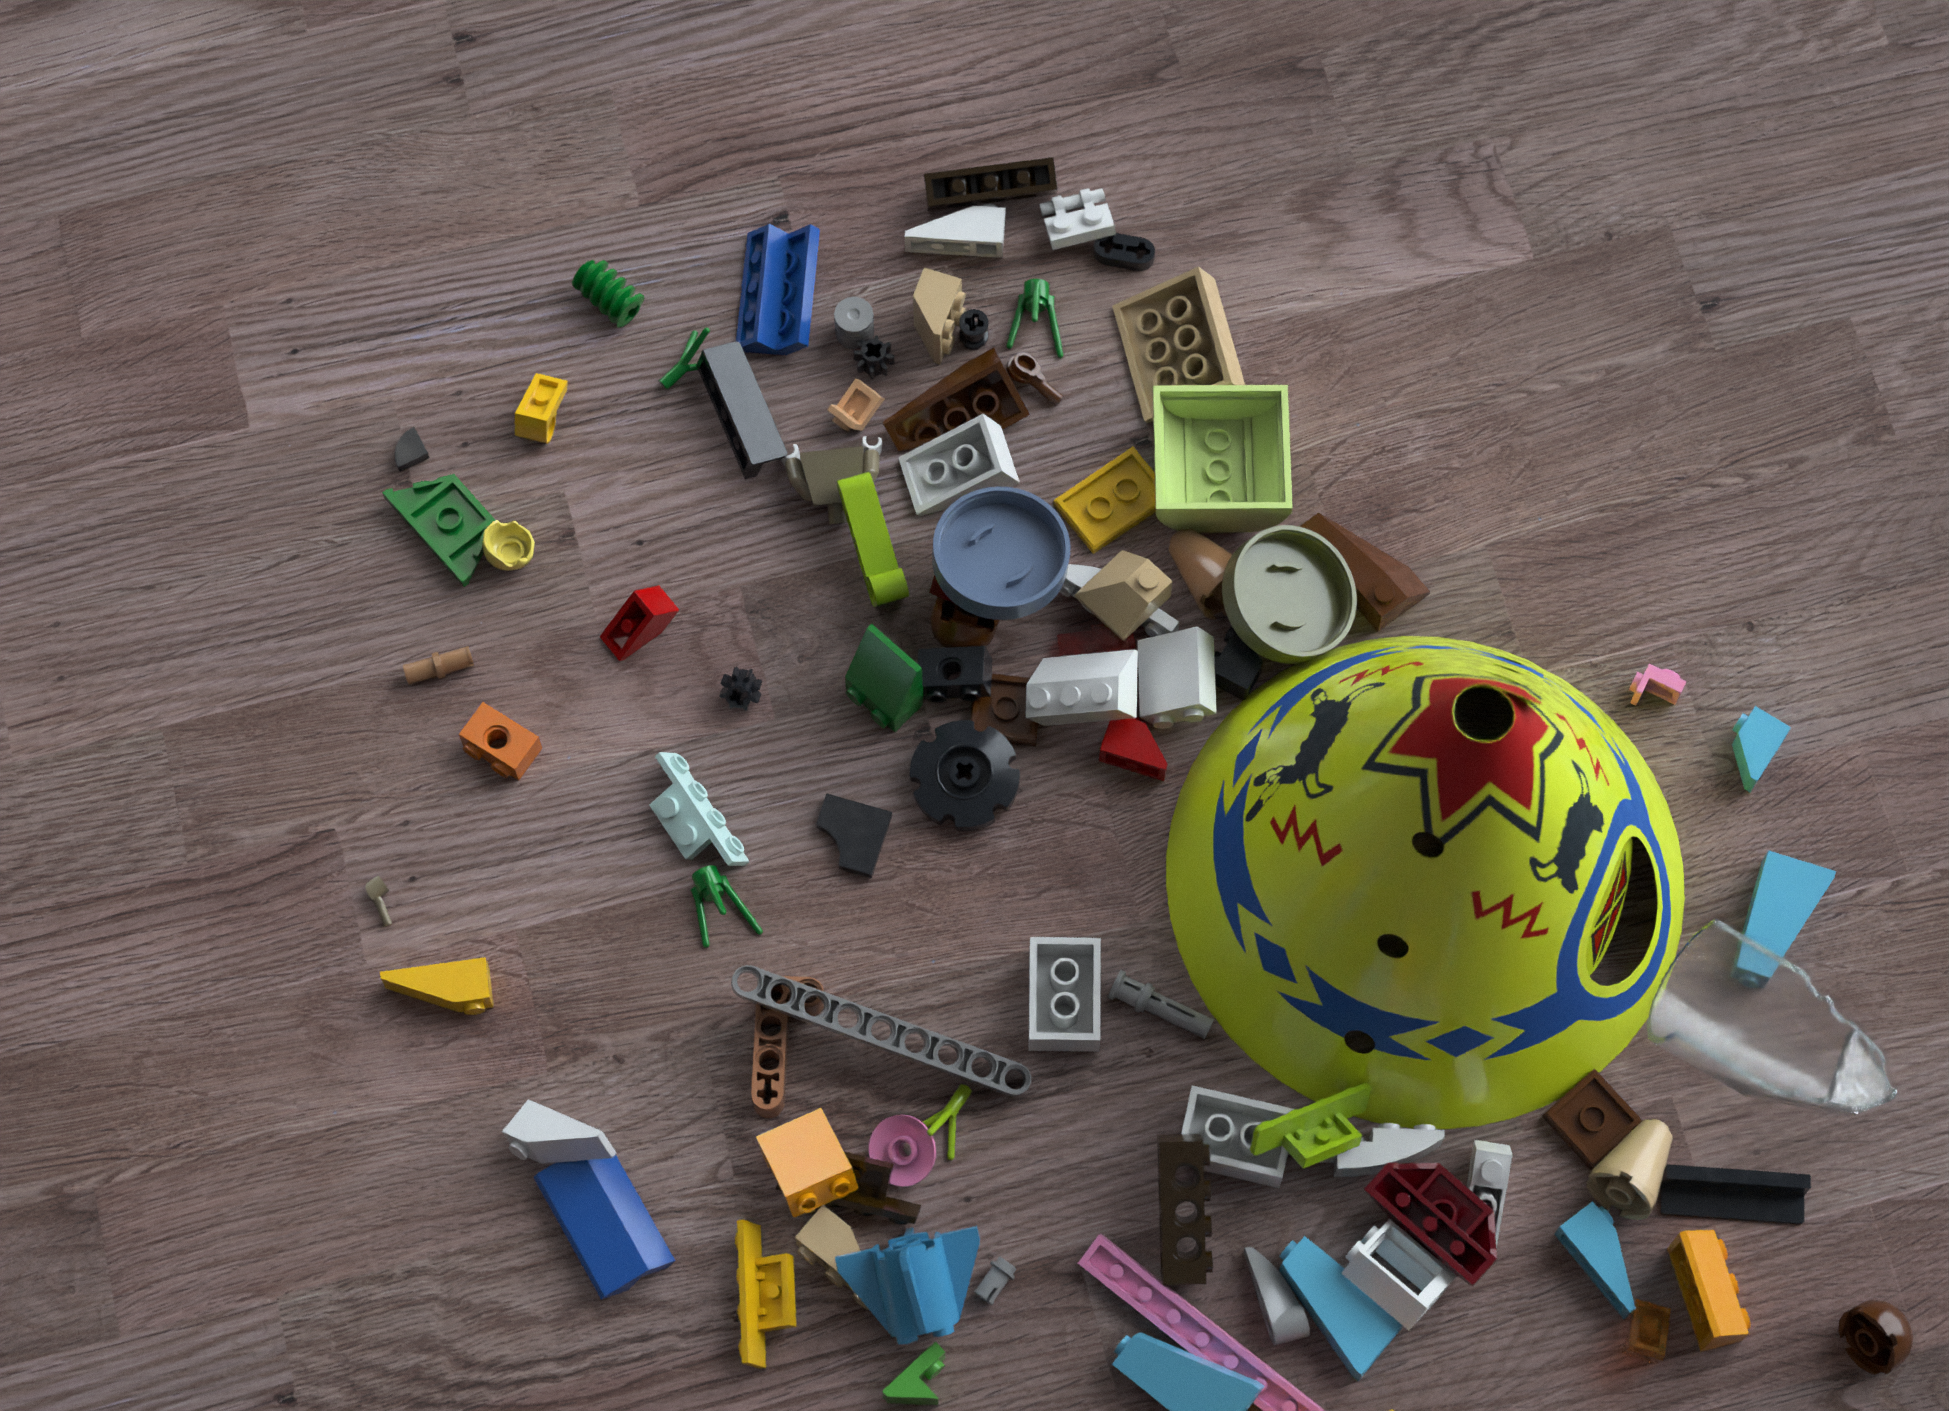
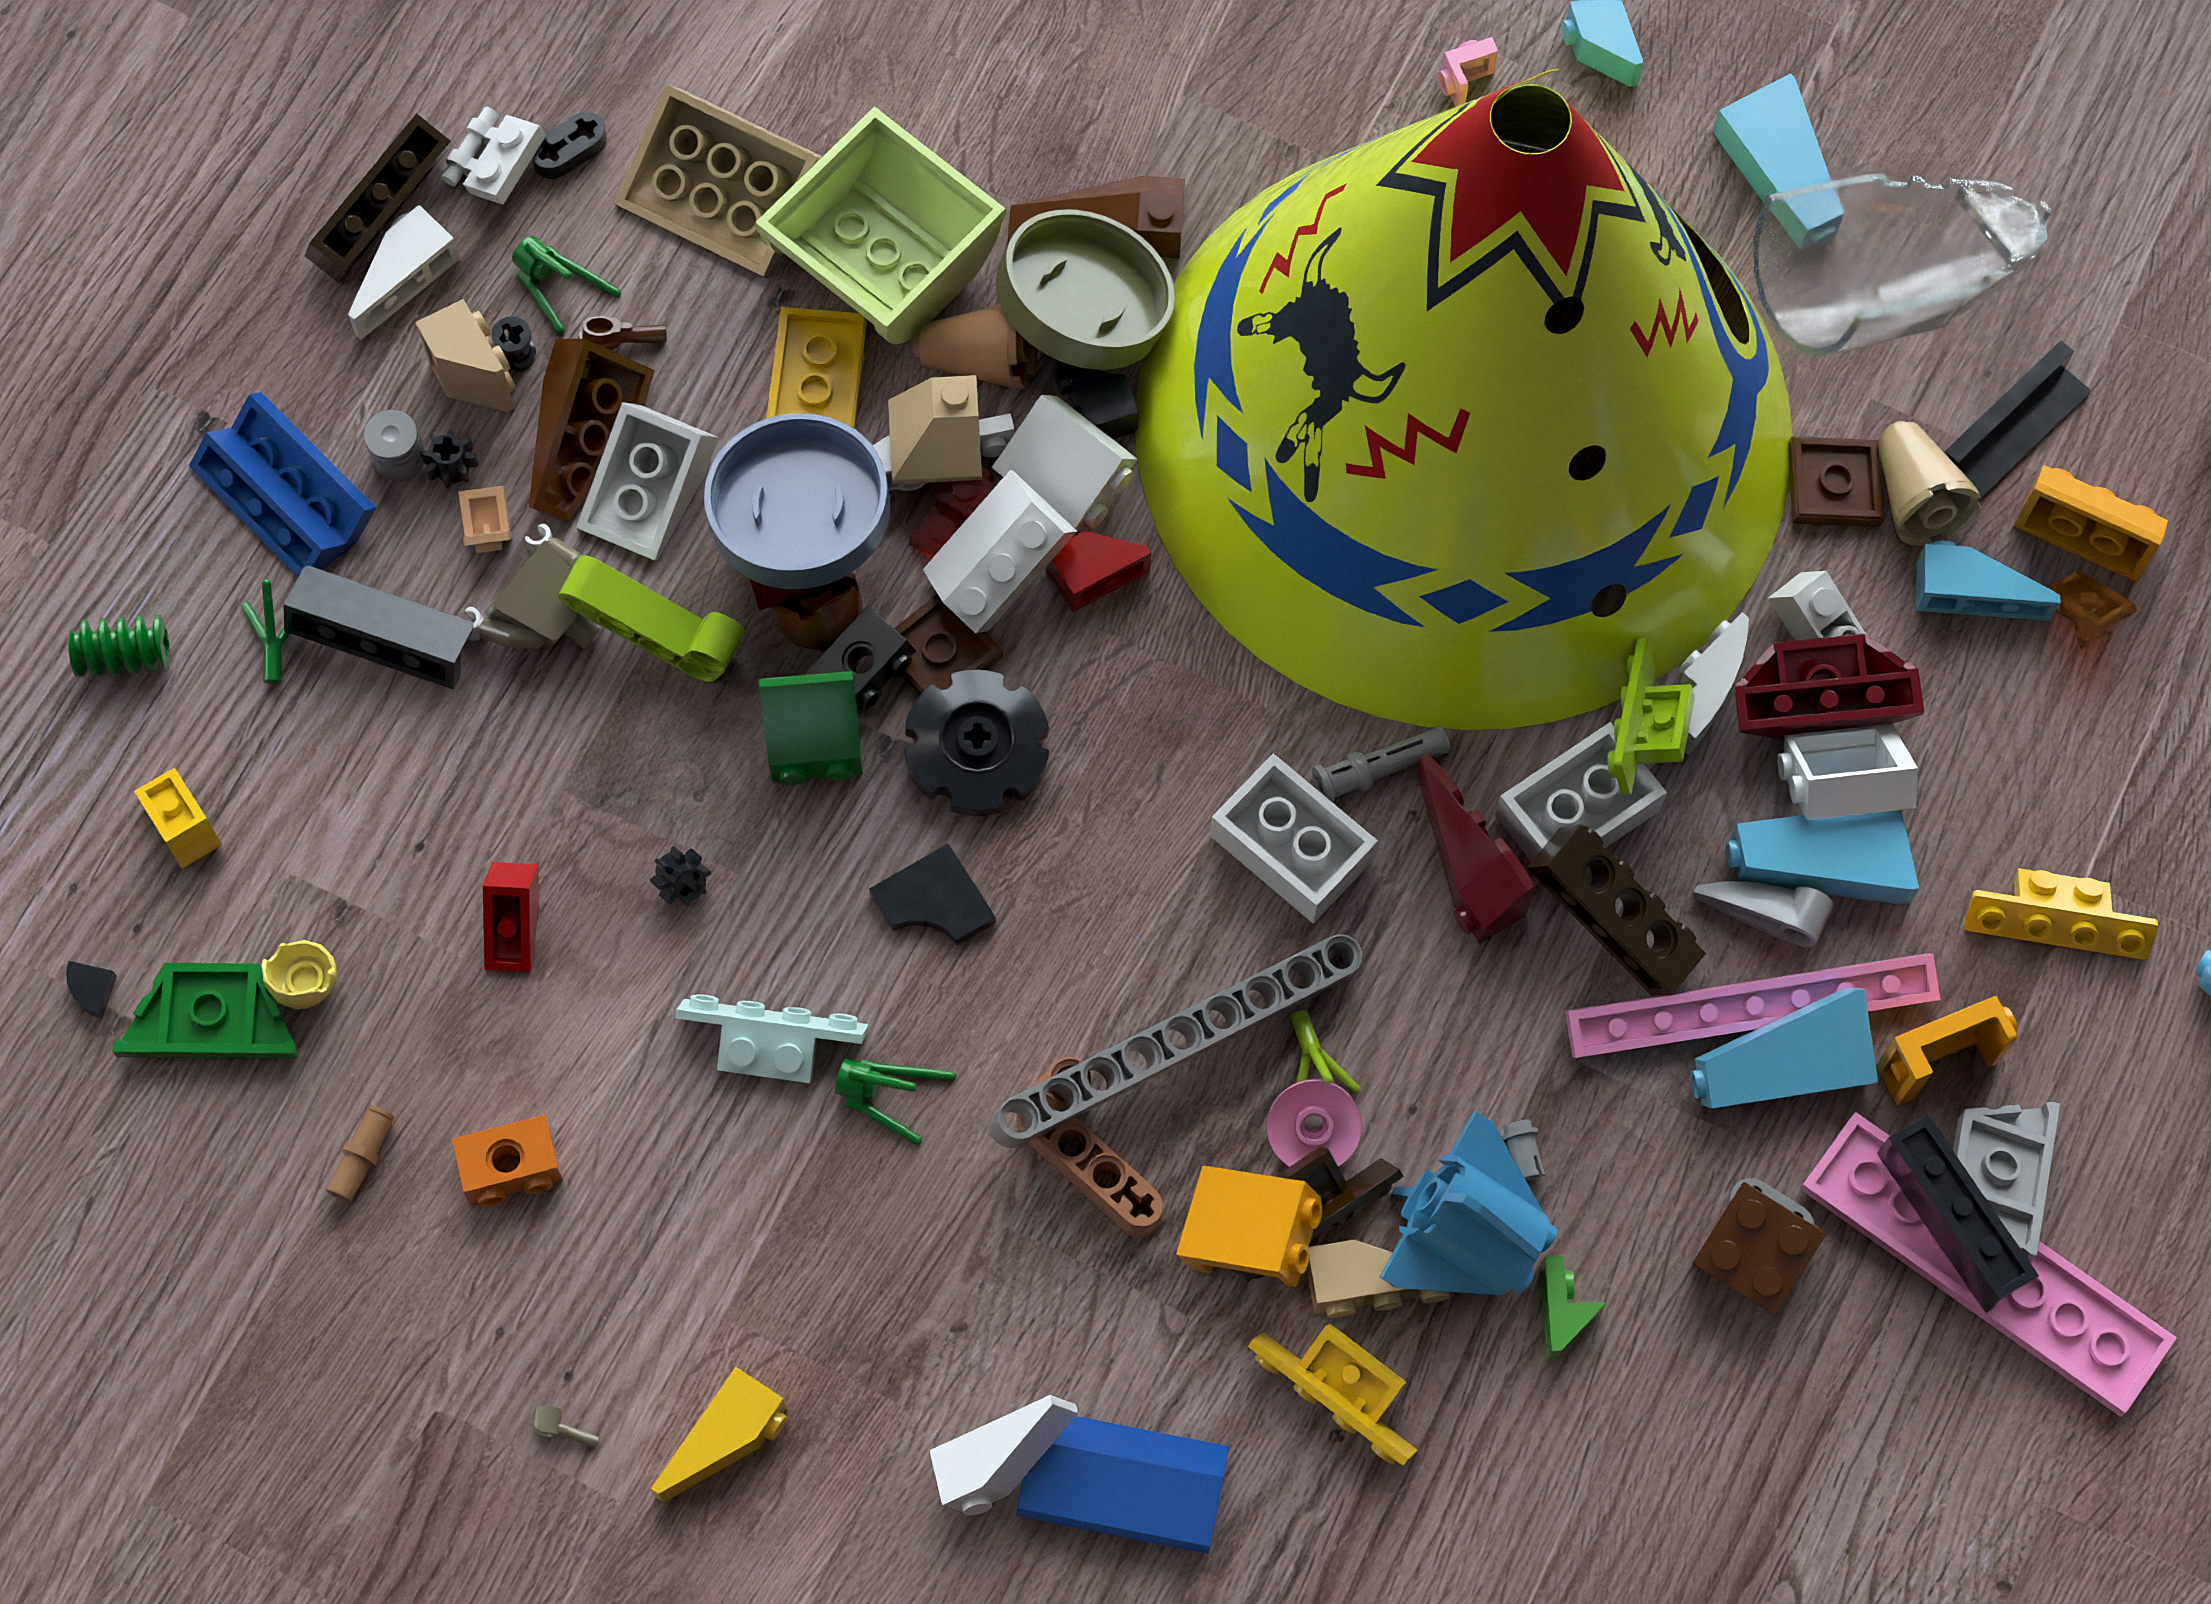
camera: 50 degrees left, 0 degrees up
(1138, 1114) = (1482, 875): none -> dark red wedge

